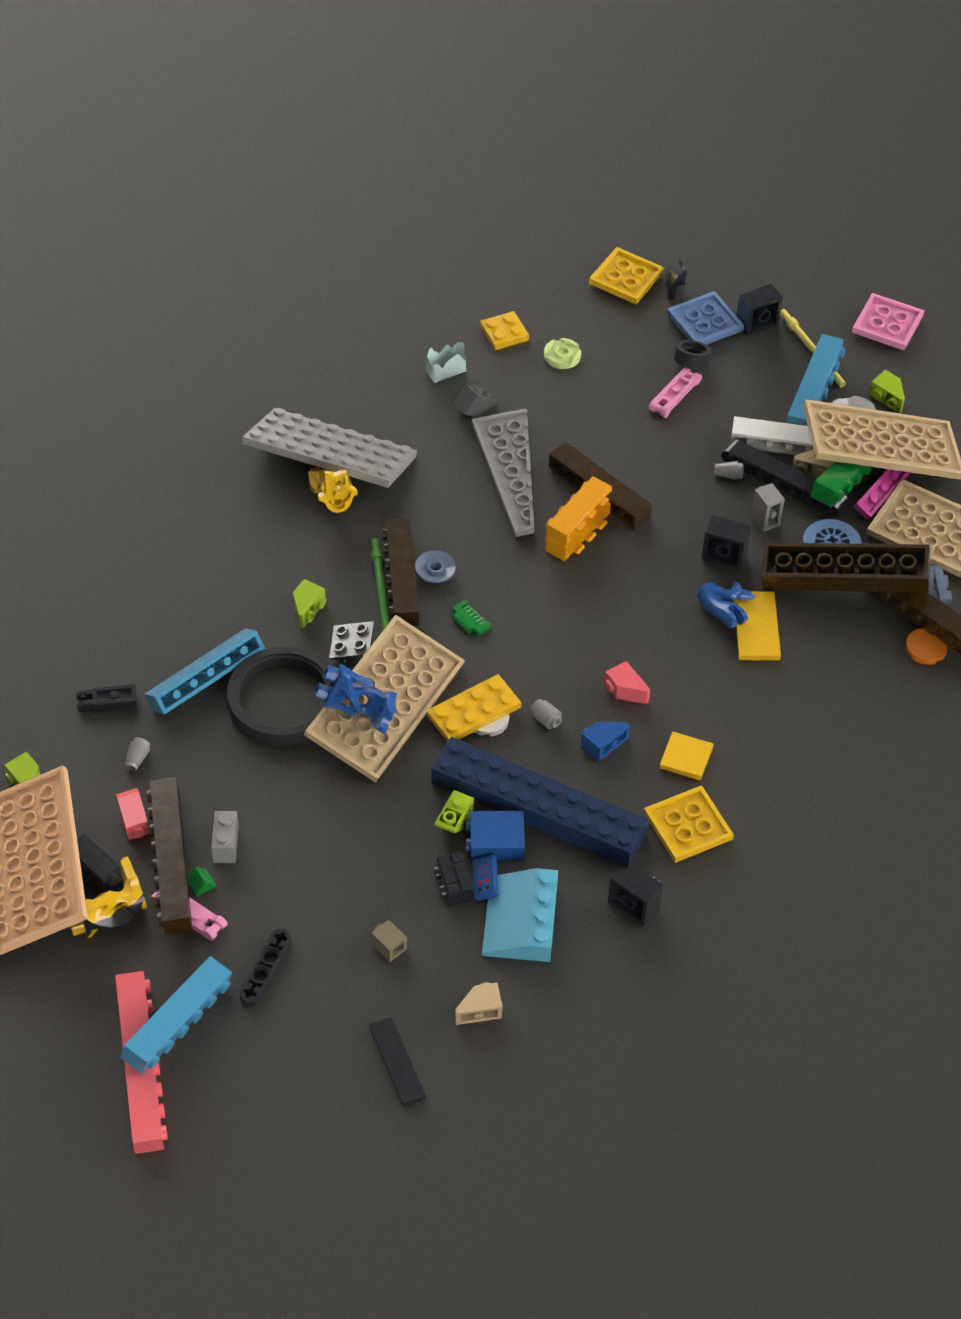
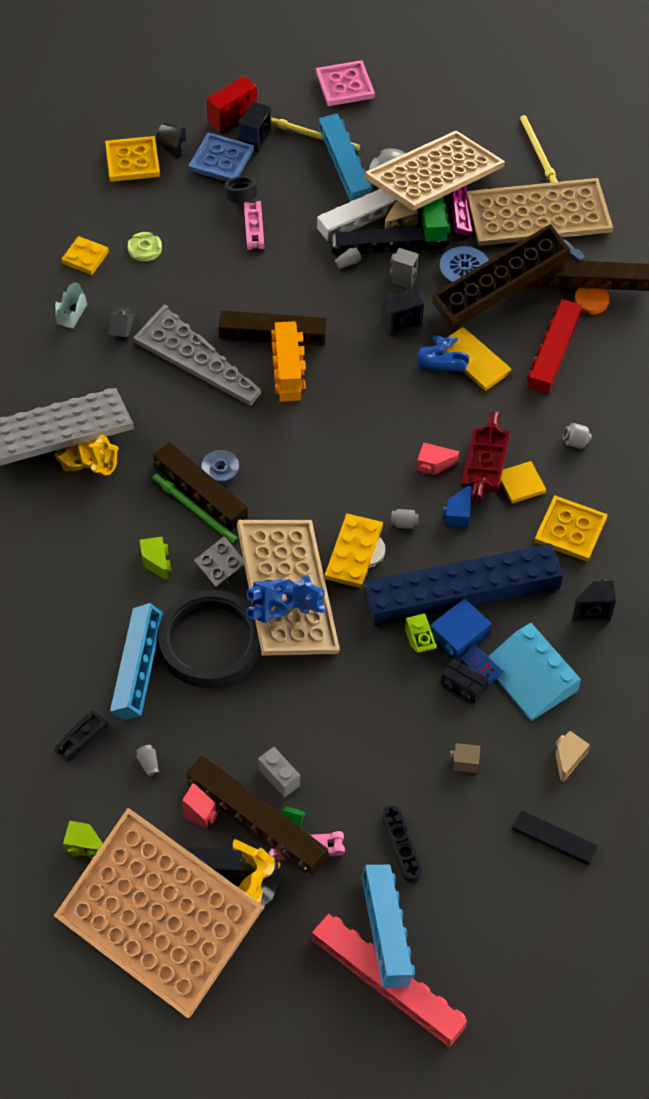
camera: 40 degrees left, 5 degrees up
(467, 621) = (280, 490): green piece -> none
(672, 712) = (486, 458): none -> dark red plate
(755, 272) = (230, 103): none -> red brick
(778, 750) = (576, 435): none -> light grey head
(842, 662) = (554, 347): none -> red brick
(888, 390) = (396, 133): lime slope -> none

